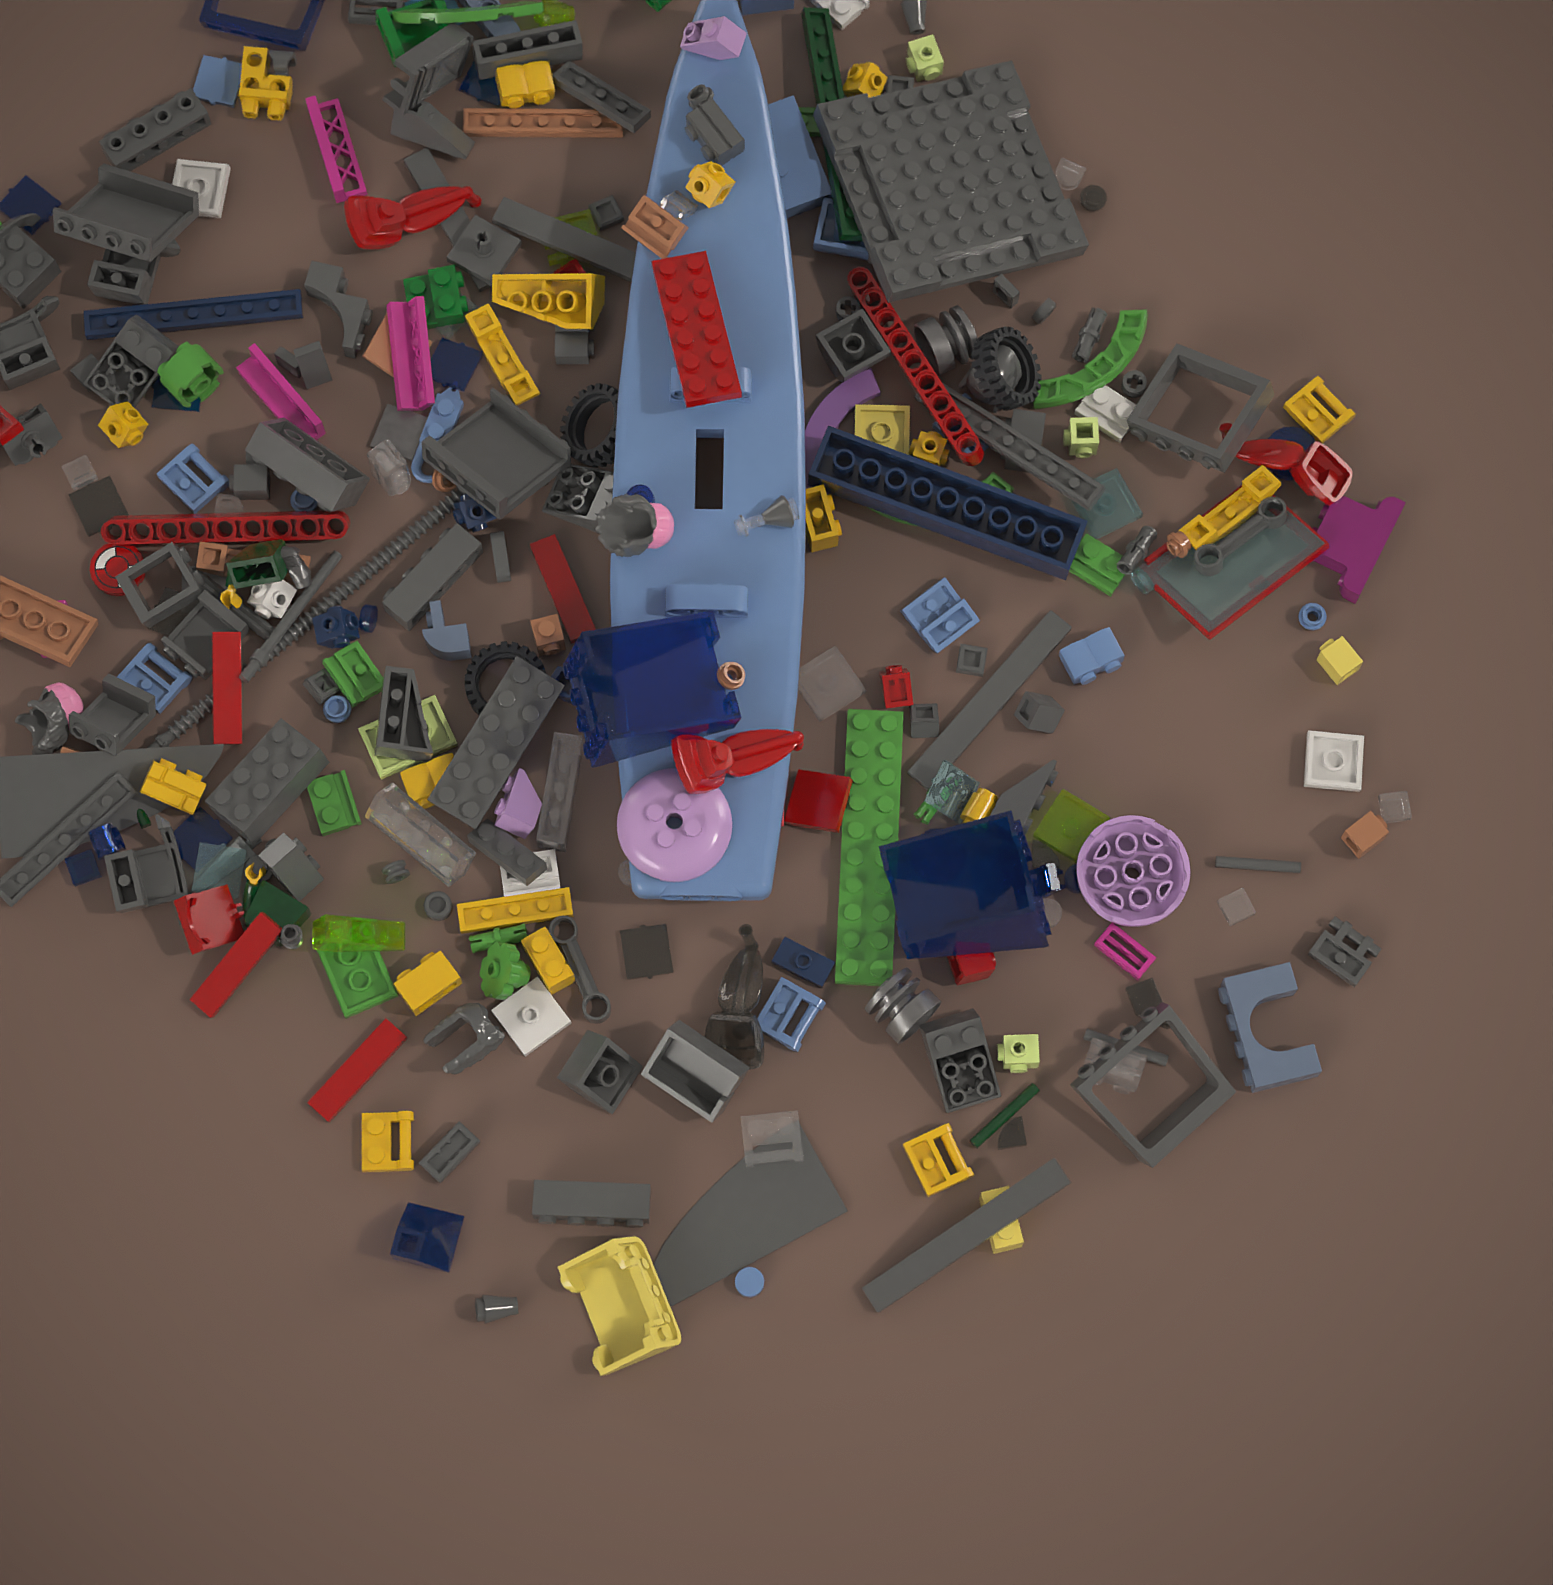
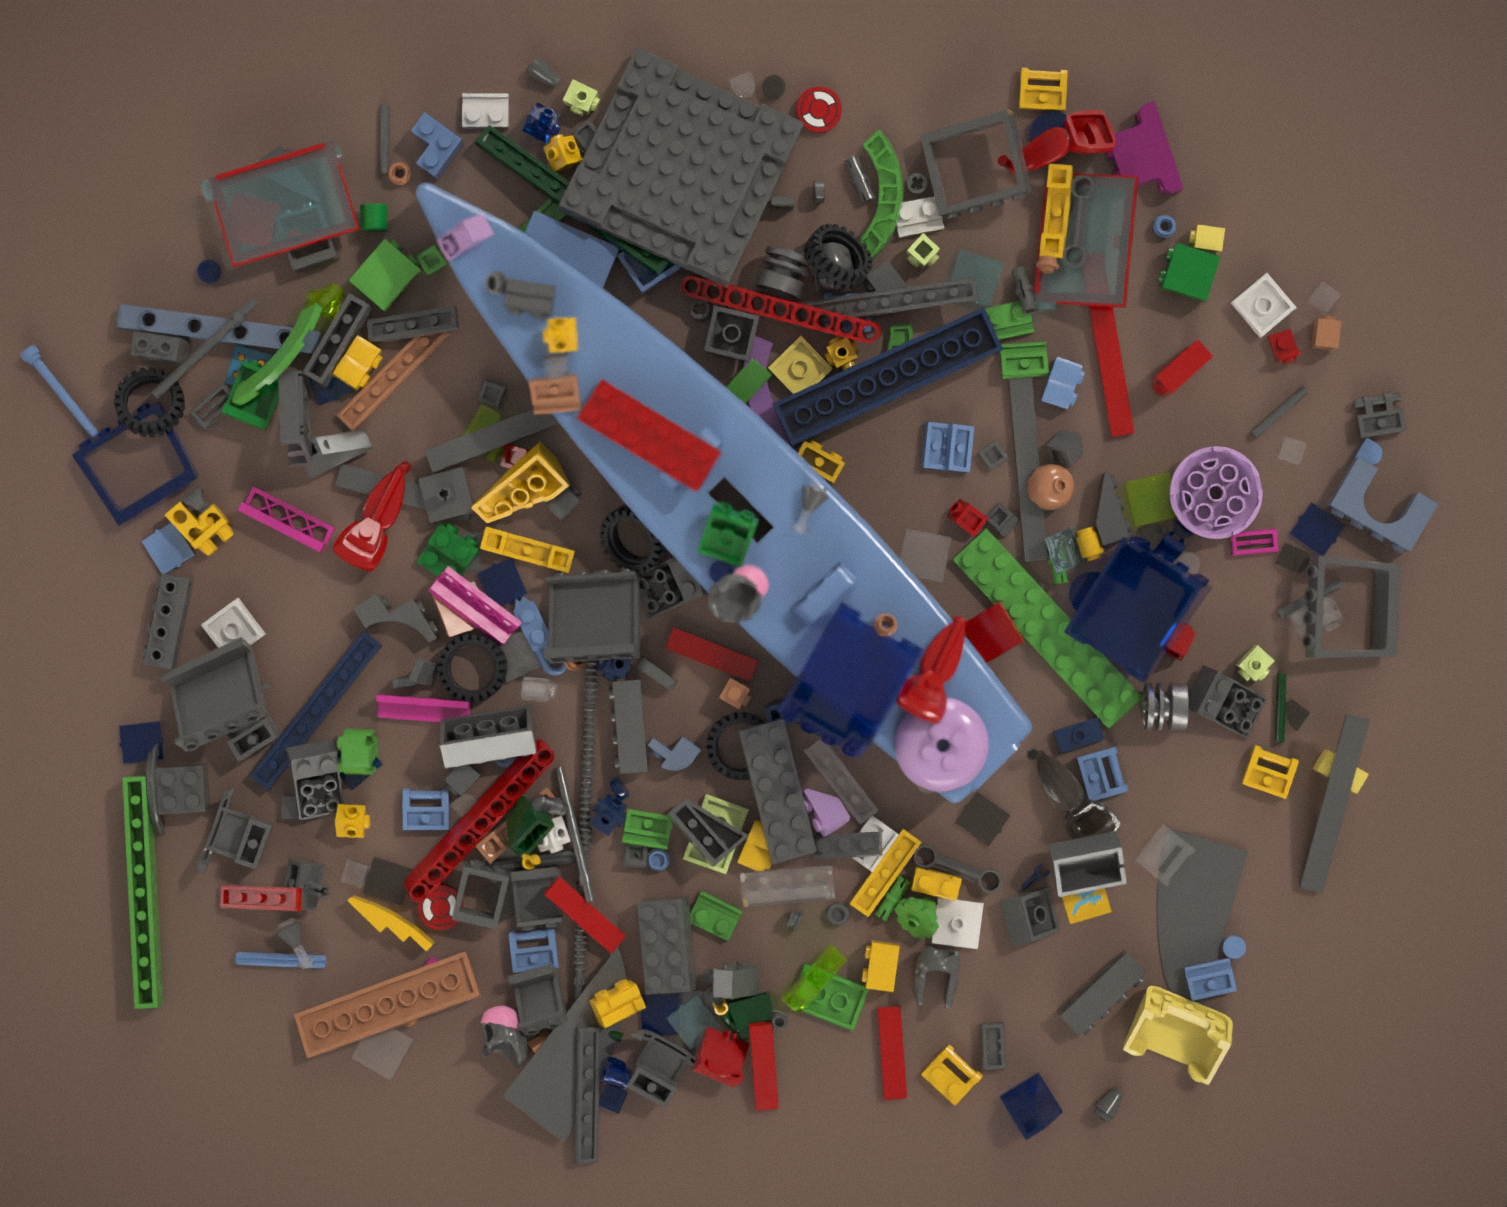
camera: 45 degrees left, 15 degrees up
(61, 530) = (382, 917): none -> yellow slope
(342, 377) = (454, 688): none -> black tyre
(621, 39) = (385, 274): none -> bright green panel
(639, 1044) = (1035, 876): none -> dark blue hand
(660, 1113) = (1086, 905): none -> yellow sticker
(666, 66) = (431, 260): none -> bright green tile
(677, 470) = (728, 534): none -> green plate
(699, 1287) = (1210, 979): none -> medium blue plate
(828, 398) = (749, 380): none -> bright green slope
(872, 44) = (542, 123): none -> clear blue brick
(994, 729) = (1050, 486): none -> nougat cylinder
(1078, 607) = (1024, 360): none -> bright green plate
(1112, 251) = (819, 109): none -> tile
(1146, 688) = (1111, 371): none -> red tile
(1192, 995) = (1317, 529): none -> clear blue piece
(1207, 738) = (1181, 369): none -> red window
(1295, 670) = (1189, 272): none -> green brick
(1305, 974) = (1369, 451): none -> medium blue tile
(1317, 813) = (1284, 346): none -> red bracket

